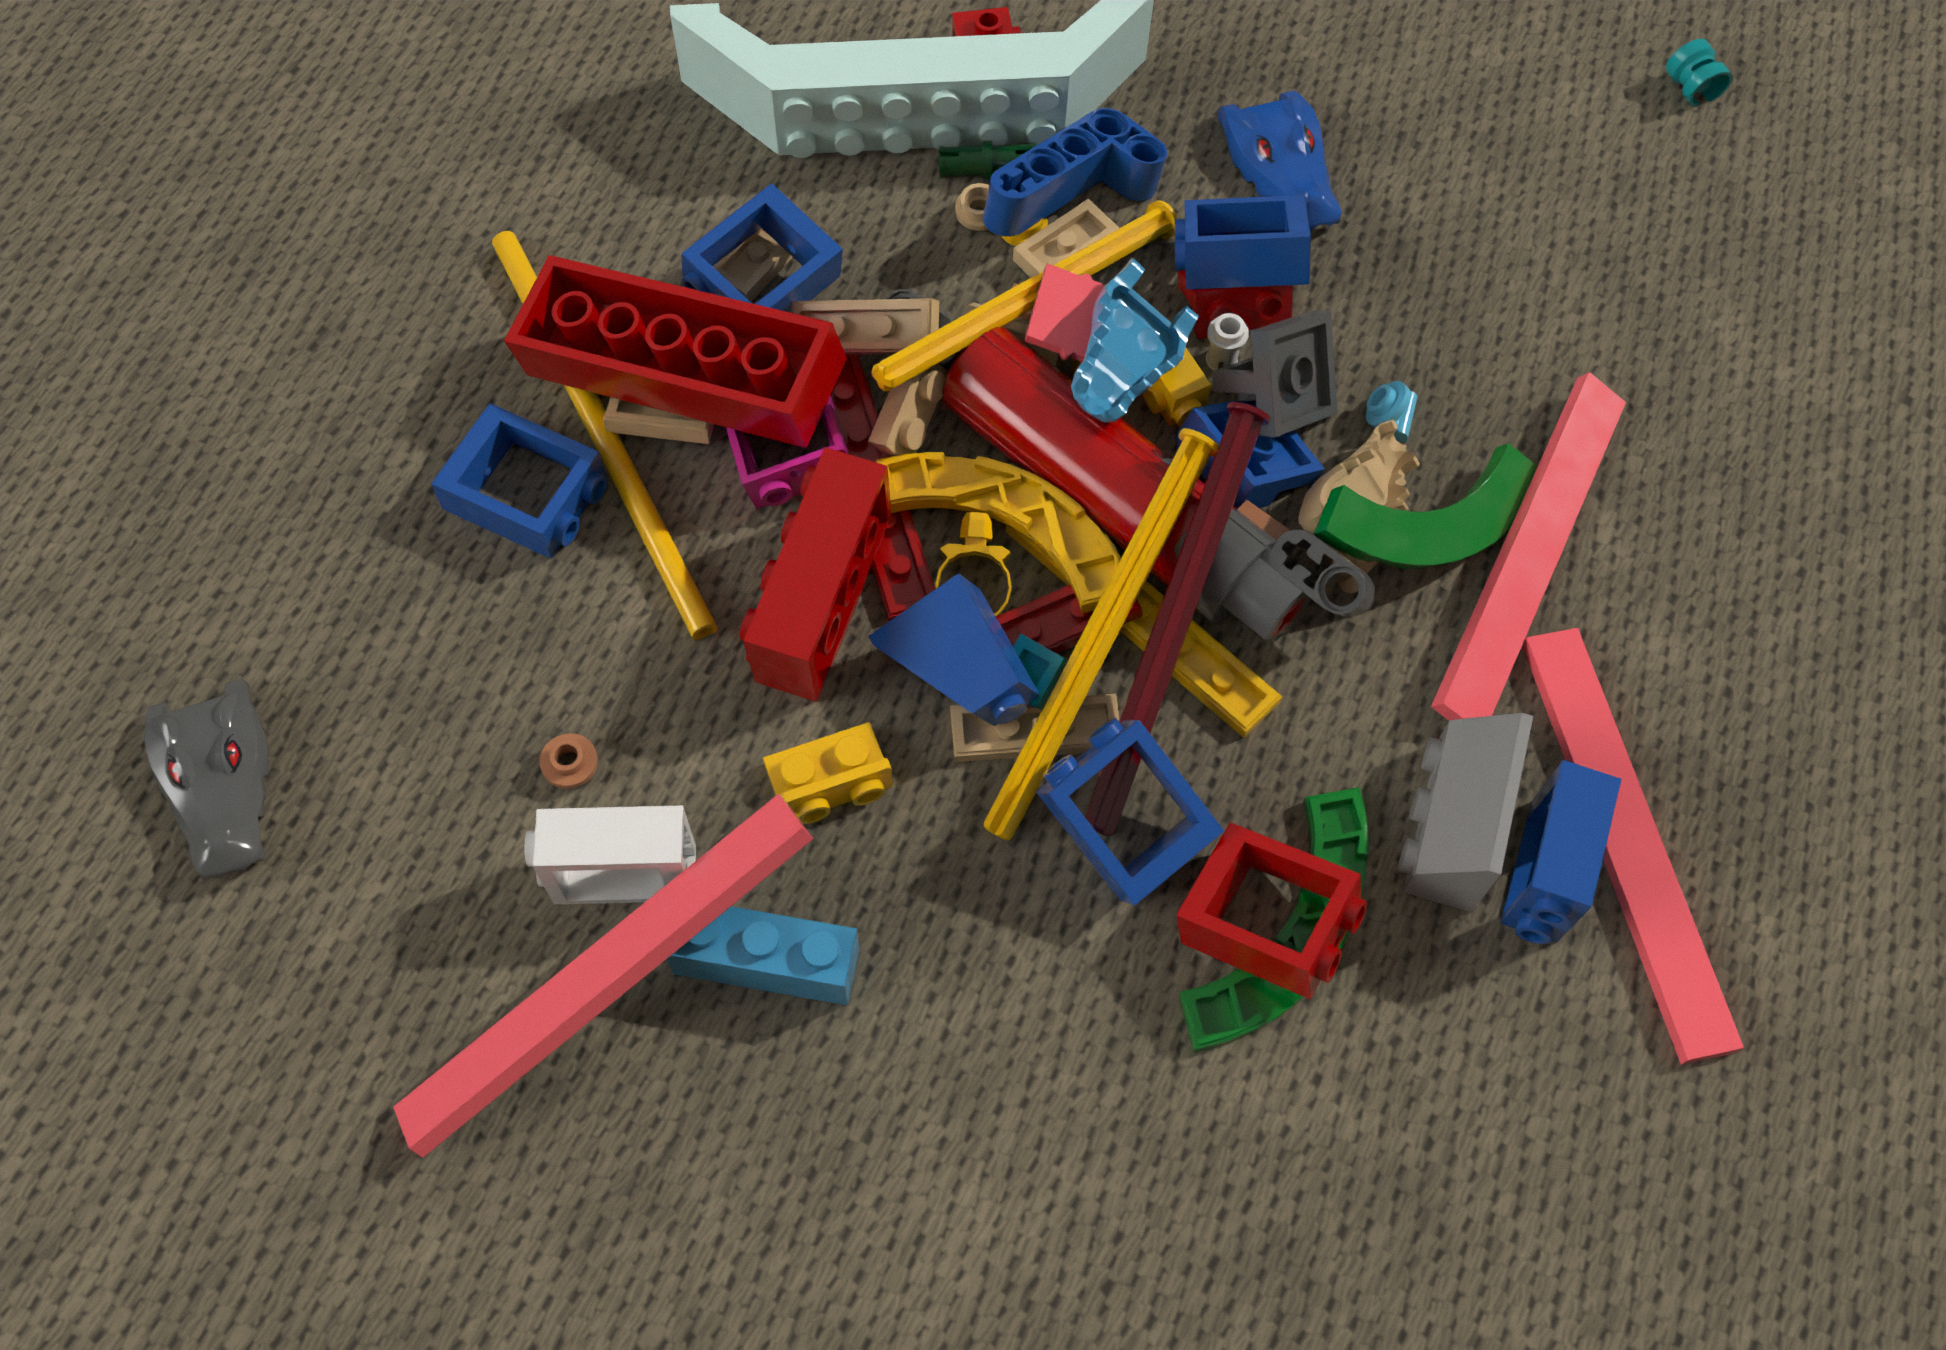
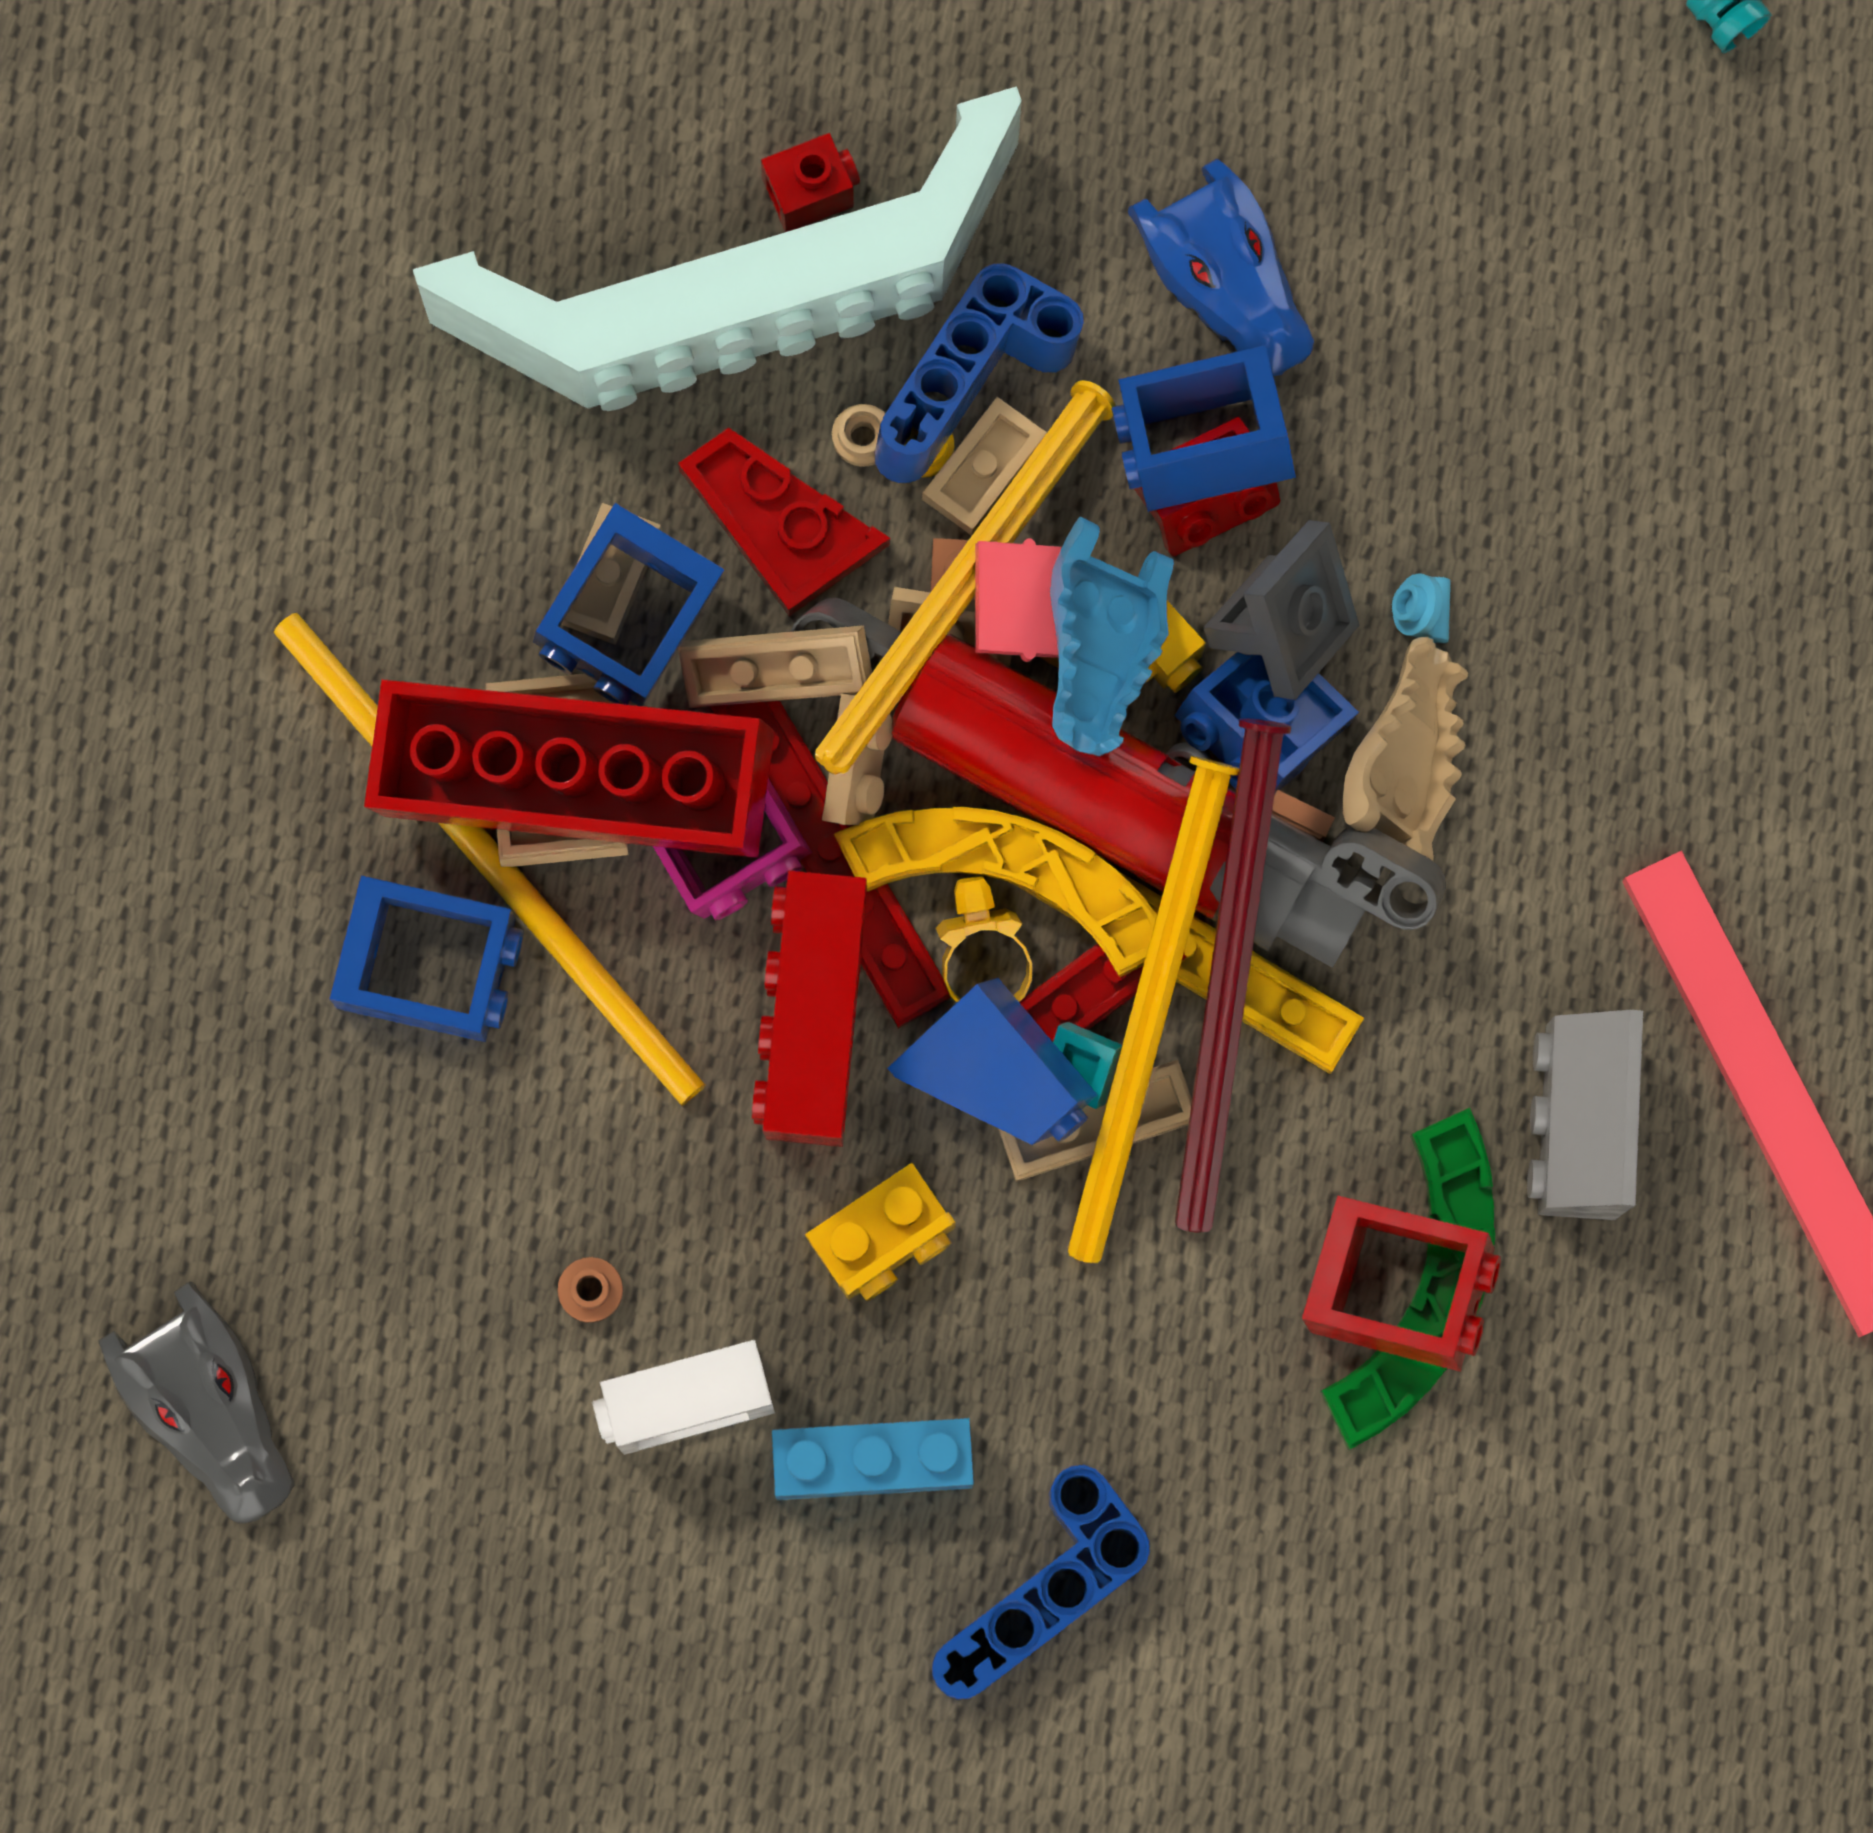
camera: 15 degrees left, 15 degrees up
(600, 975) = (718, 1531): coral tile -> none
(872, 1106) = (1033, 1597): none -> blue beam
(896, 246) = (779, 524): none -> red wing
(978, 159) = (856, 361): dark green pin -> none
(1168, 852) = (1273, 1245): blue window -> none
(1226, 338) = (1220, 559): white pin -> none
(1434, 536) = (1511, 775): green tile -> none
(1530, 553) = (1615, 761): coral tile -> none
(1560, 853) = (1697, 1147): blue window -> none

